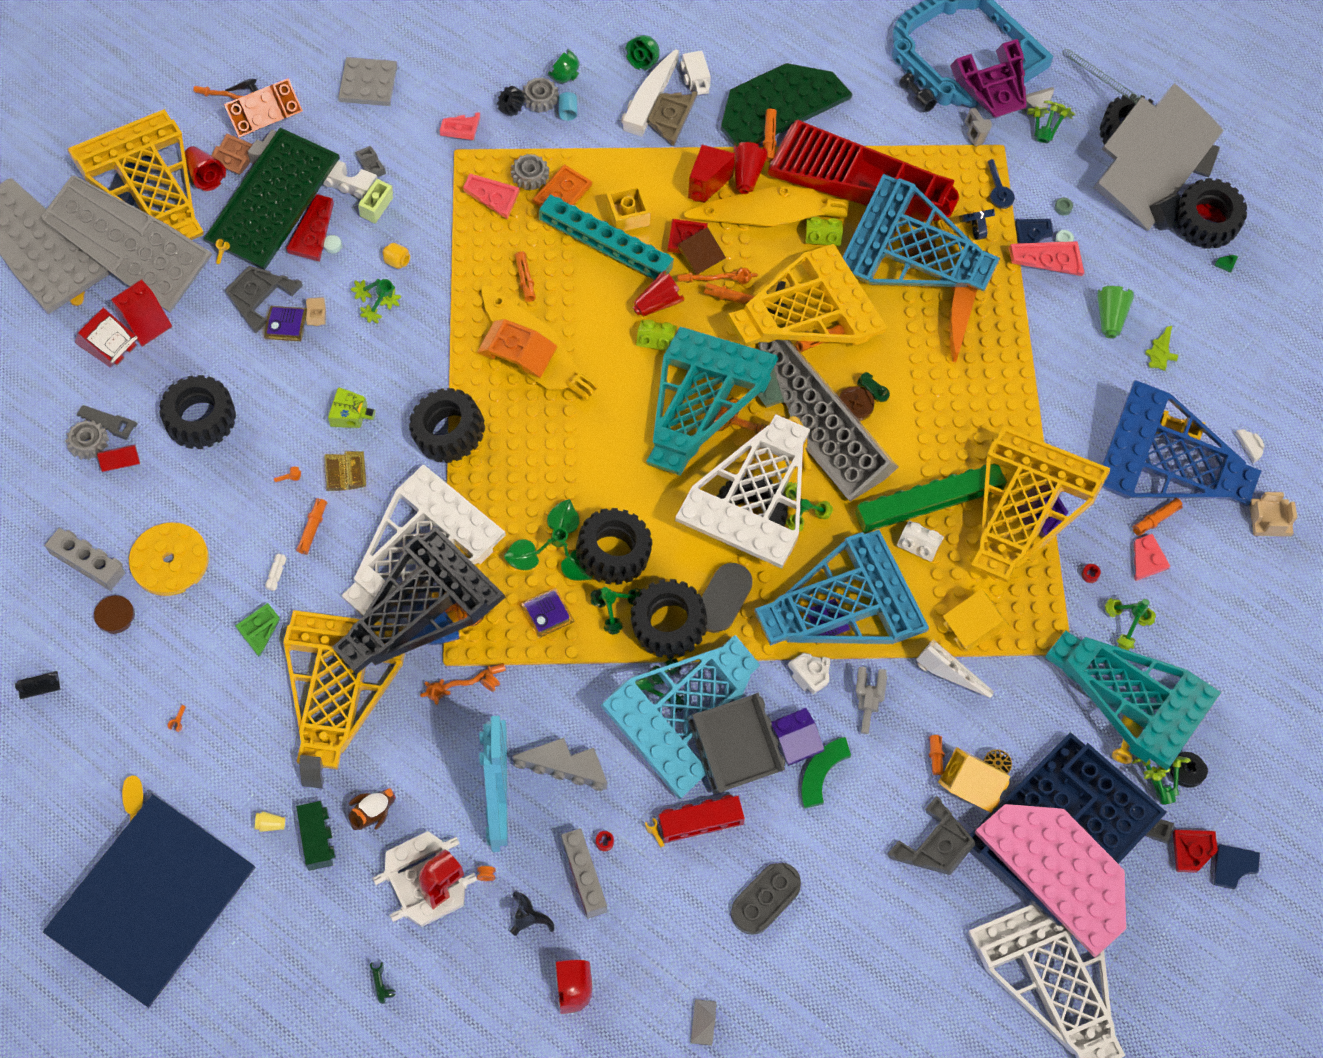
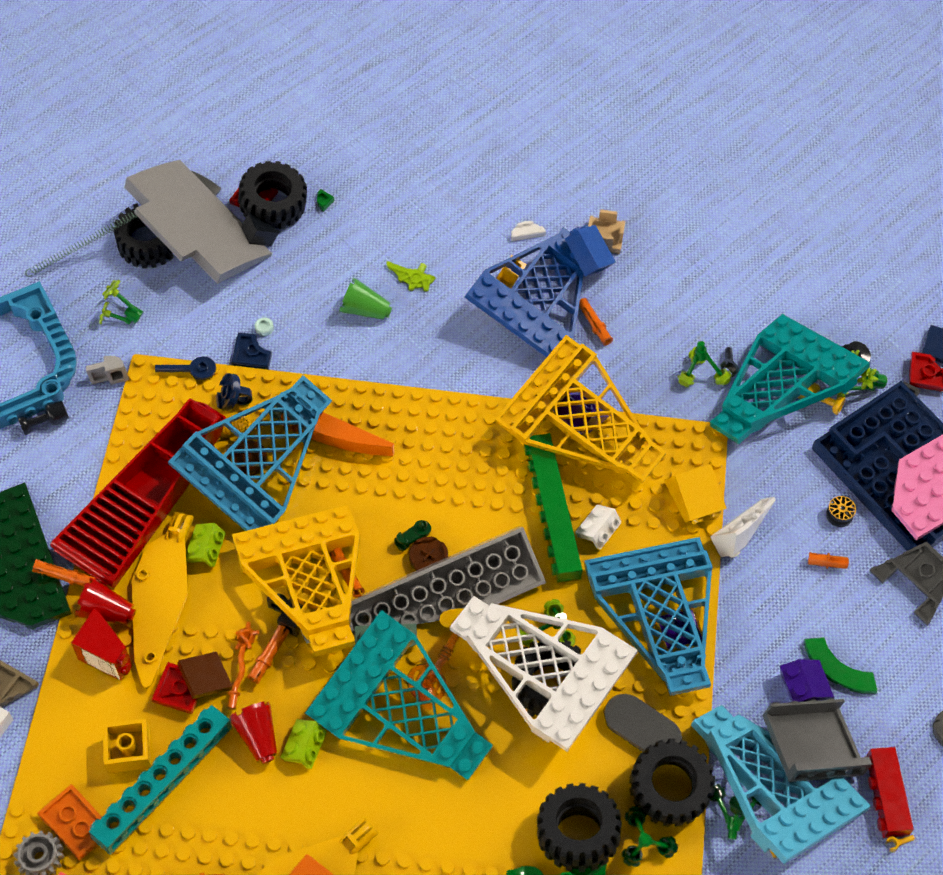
camera: 80 degrees left, 5 degrees down
(810, 672) = (733, 657): white plate -> none
(869, 695) = (763, 607): light grey plant -> none
(974, 780) = (861, 531): yellow slope -> none
(996, 88) = (64, 337): magenta wedge -> none
(1037, 98) = (90, 310): light grey slope -> none
(1051, 256) = (286, 342): coral wing -> none
(1063, 206) = (224, 318): sand green tile -> none
(1094, 568) = (651, 387): red bush -> none
(1141, 643) = (729, 363): none -> black piece
(1148, 557) = (634, 339): coral wing -> none
(1237, 494) = (589, 249): none -> blue brick

